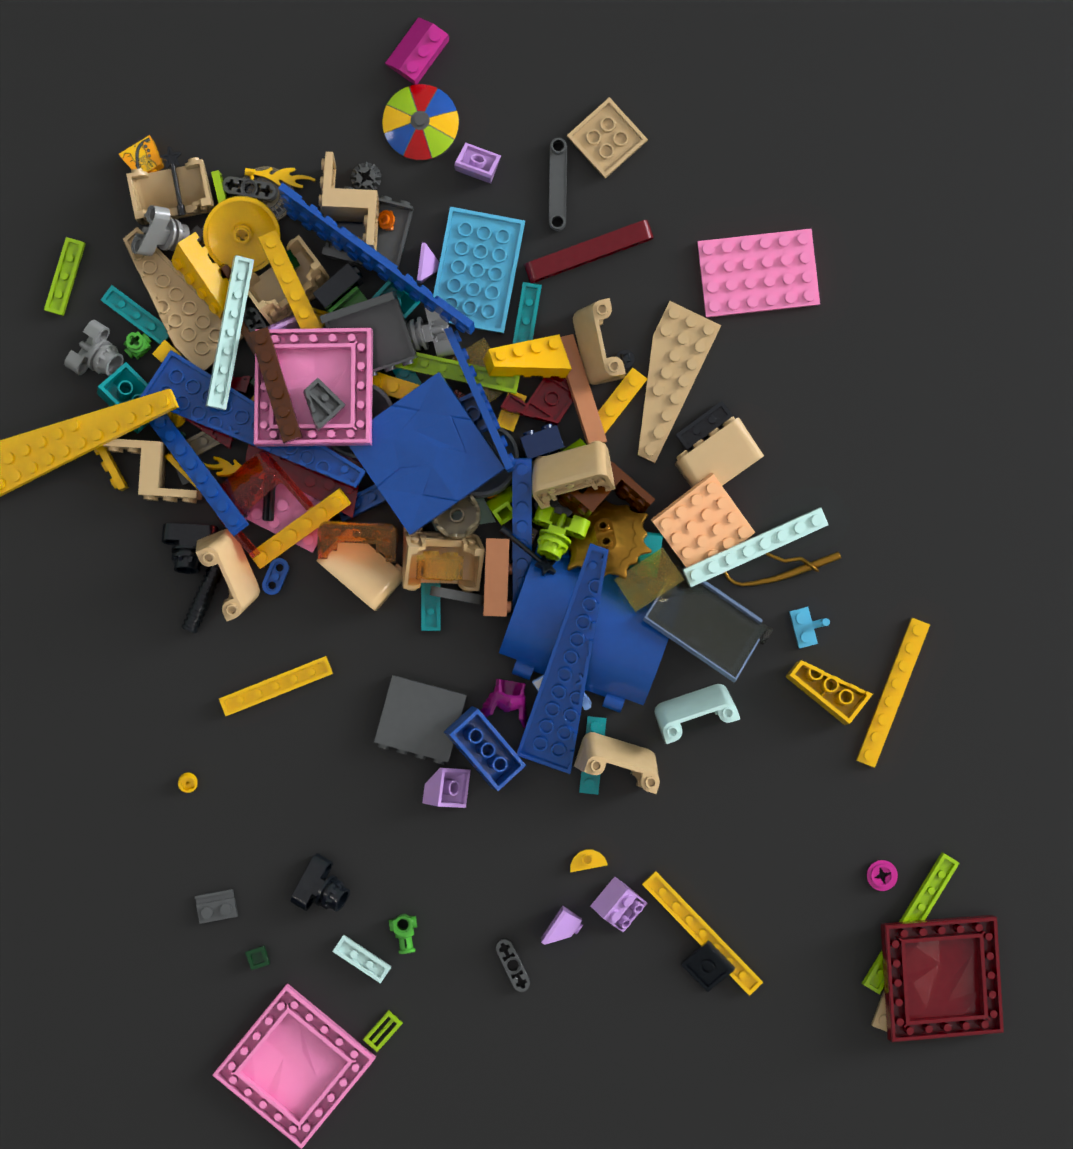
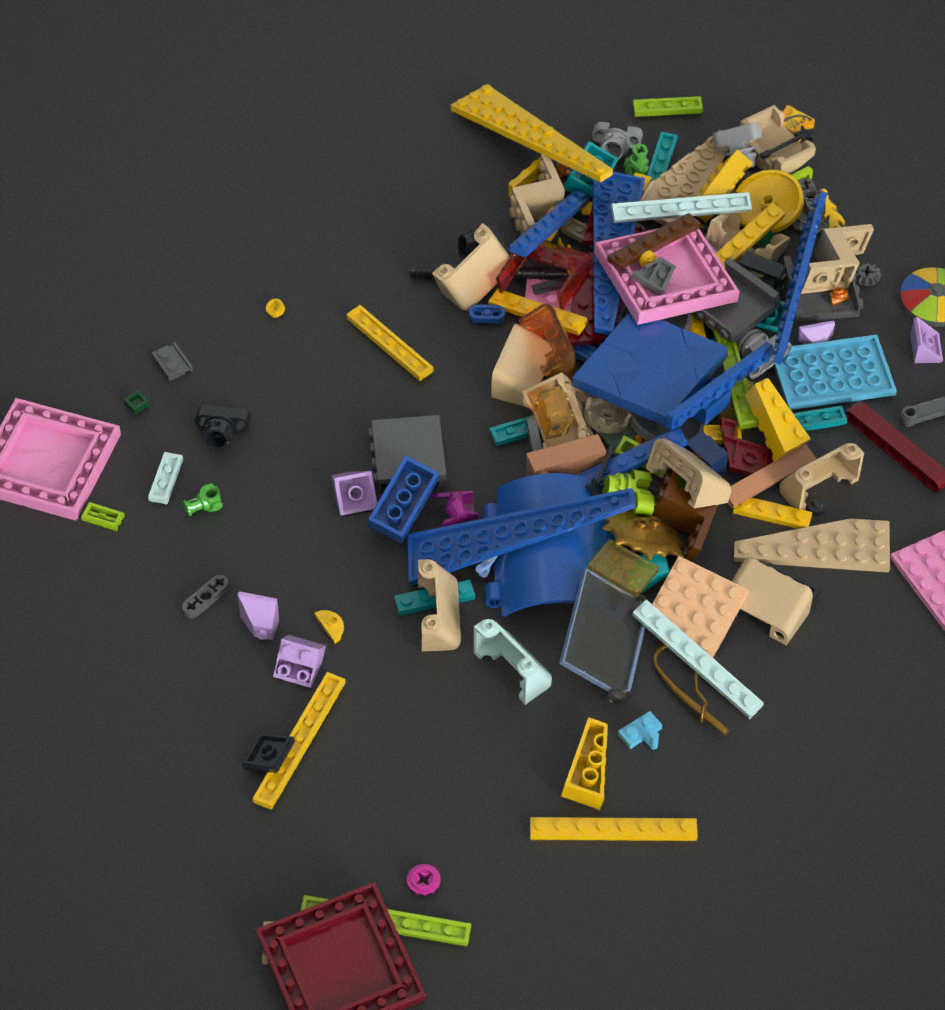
camera: 65 degrees right, 35 degrees down
(297, 401) = (647, 257): none -> yellow tile

